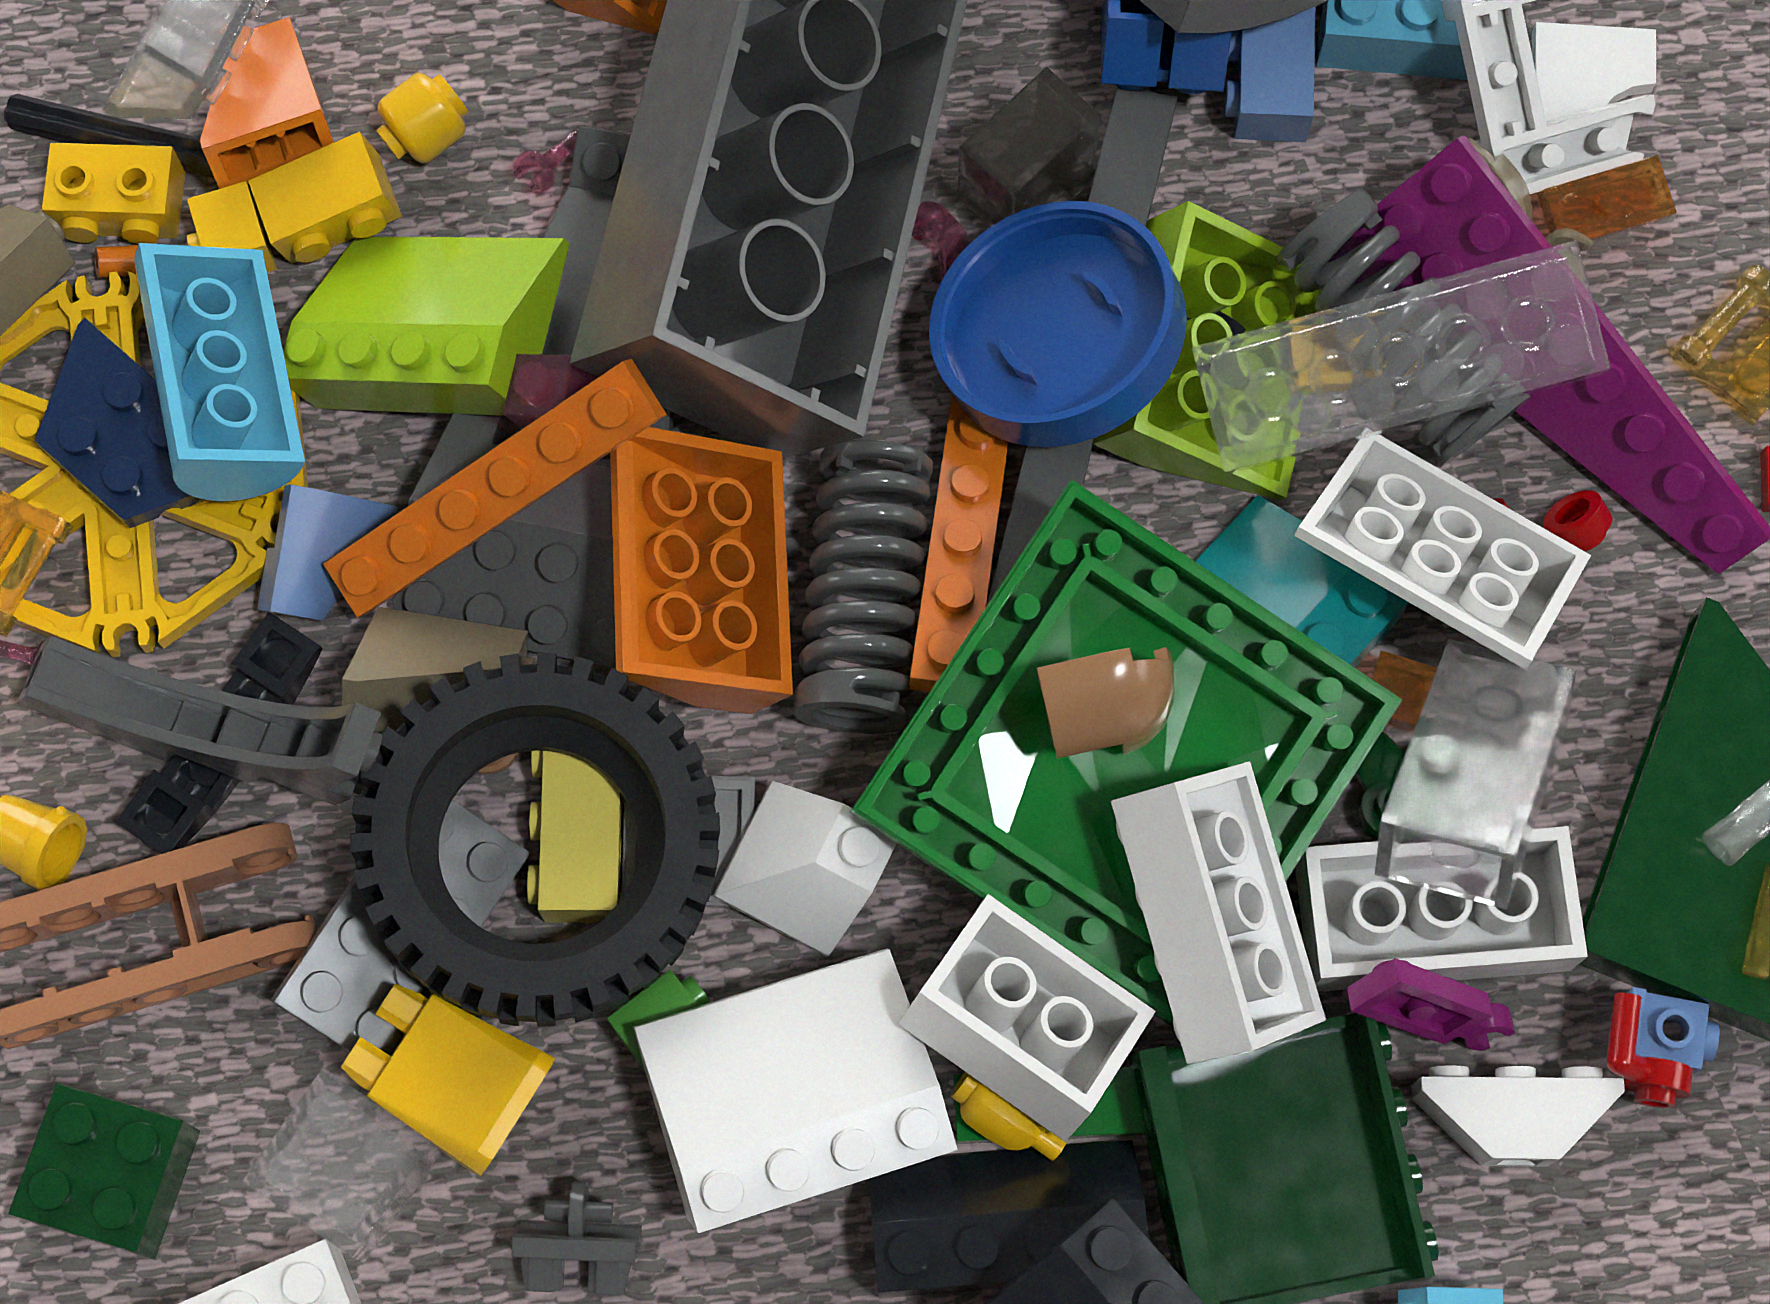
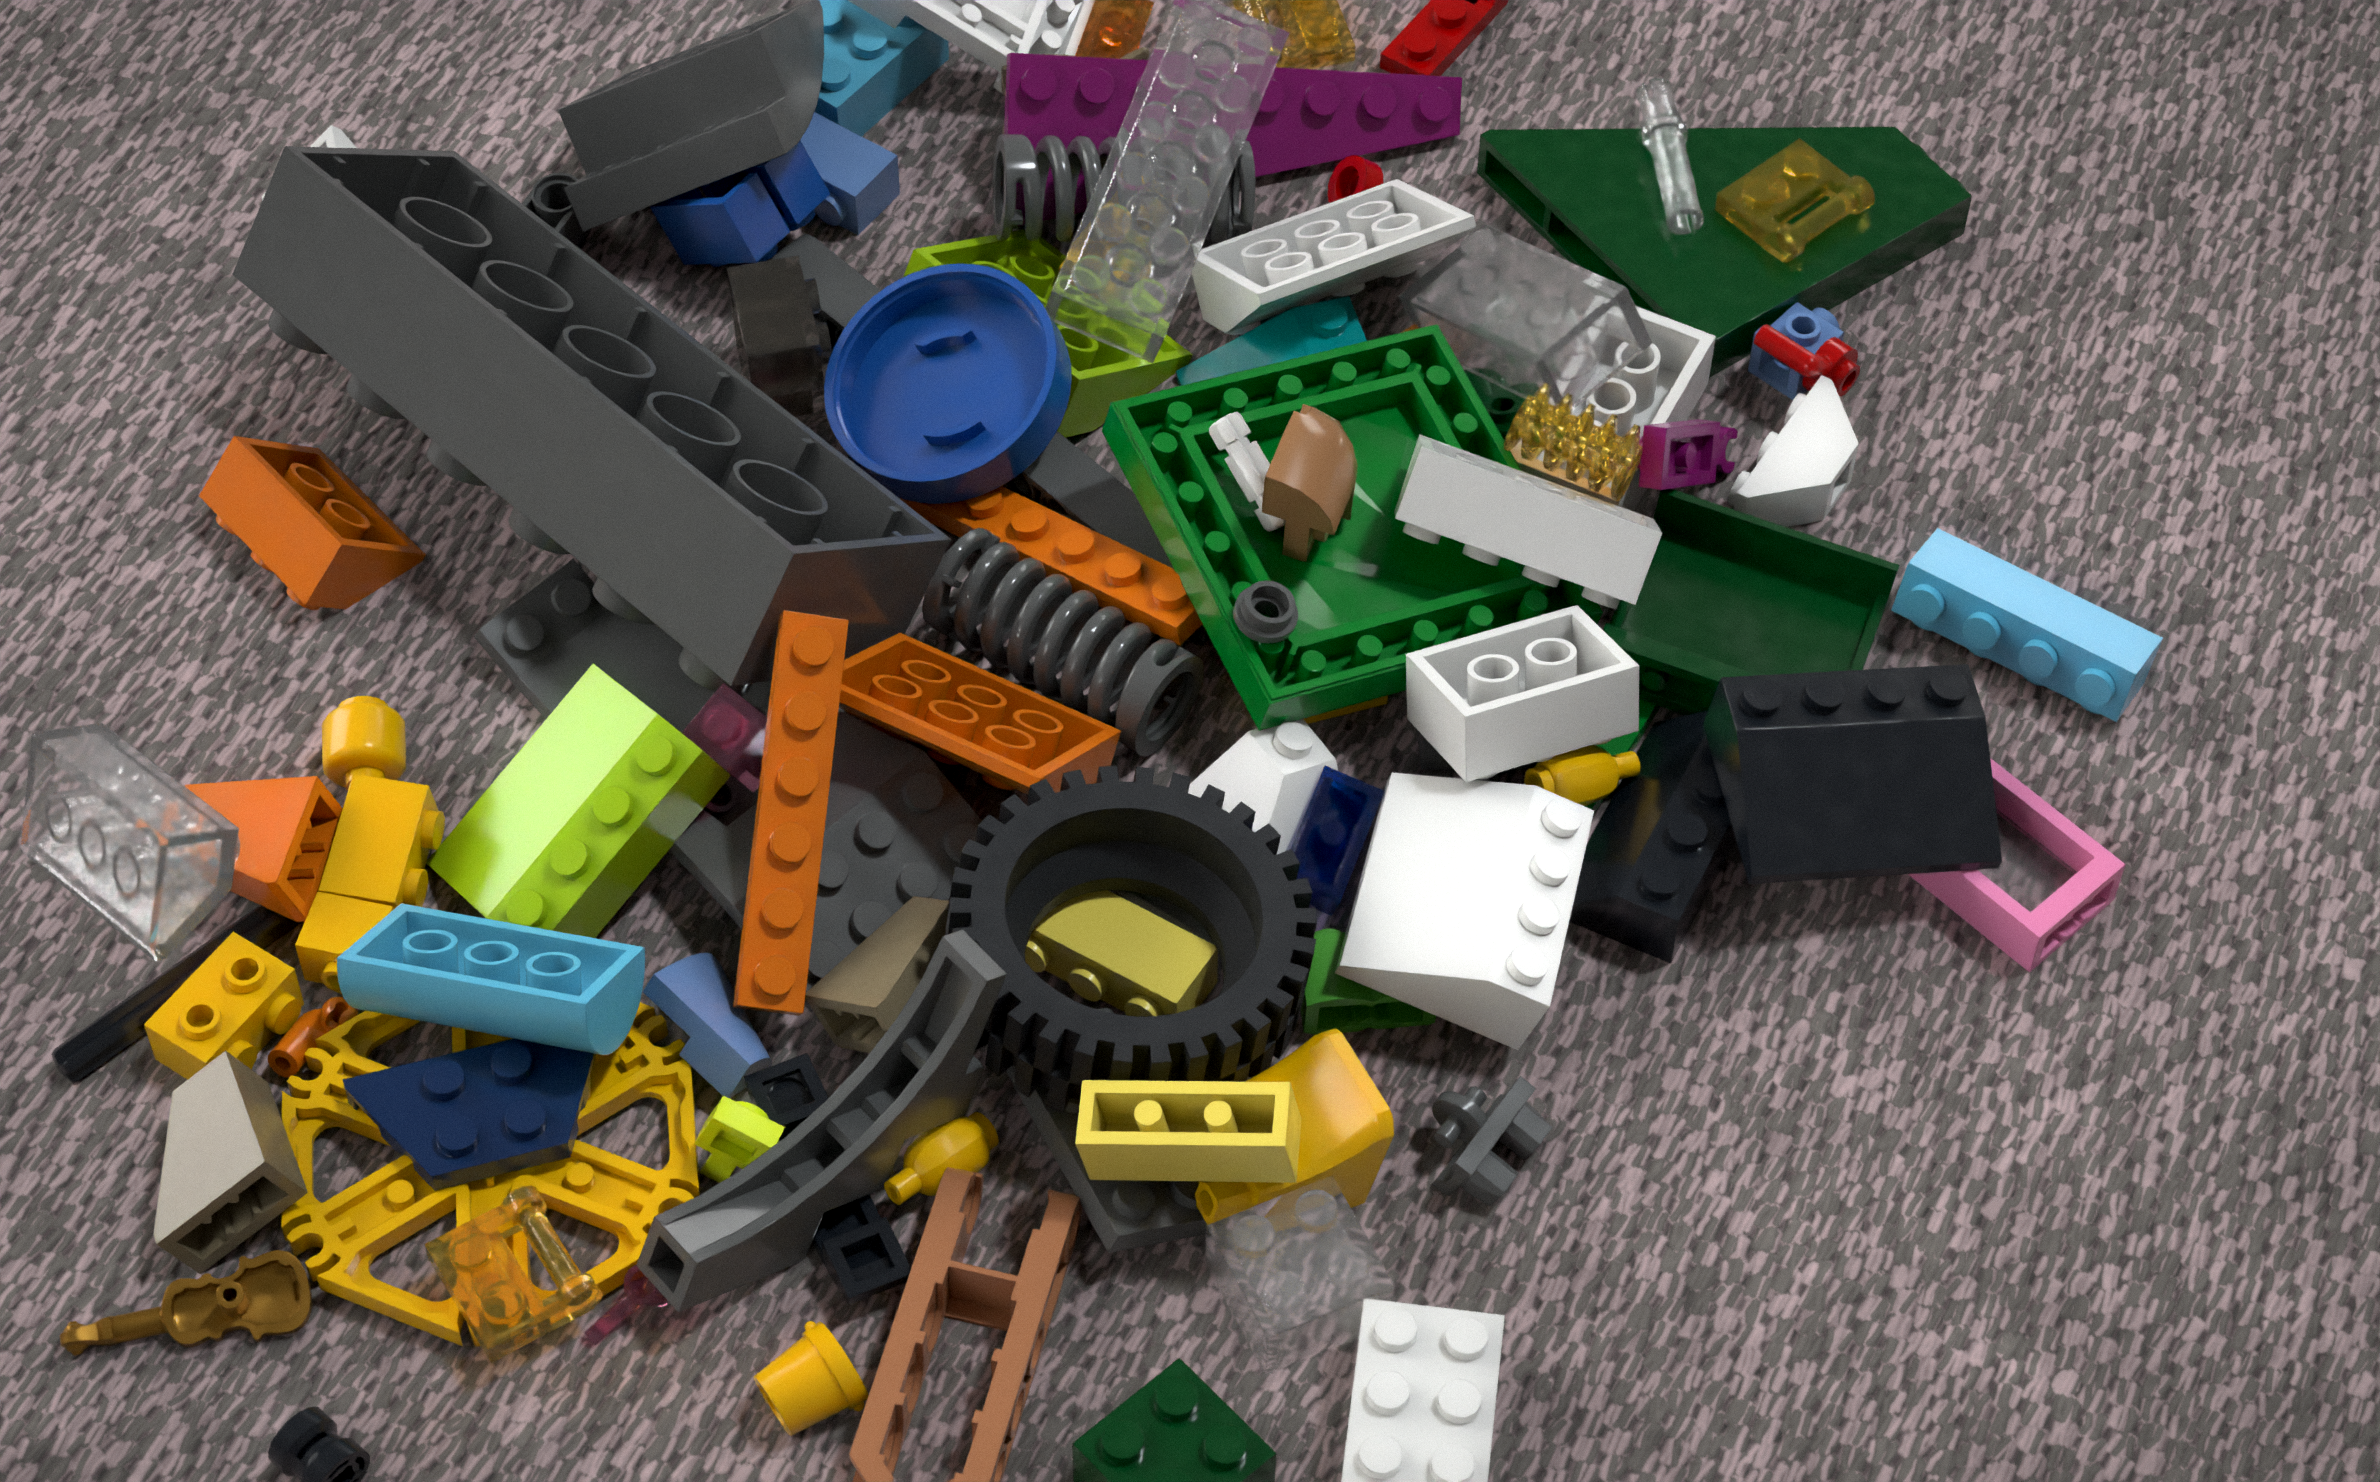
camera: 60 degrees left, 20 degrees down
(202, 644) = (735, 1137): none -> neon yellow plate
(298, 814) = (956, 1144): none -> yellow plant
(359, 1008) = (1189, 1131): none -> light yellow brick
(547, 162) = (478, 686): clear pink hand -> none
(798, 935) = (1334, 835): none -> clear blue slope
(953, 746) = (1269, 599): none -> dark grey plate
(1100, 626) = (1245, 462): none -> white axle
(1338, 906) = (1577, 441): none -> clear yellow piece

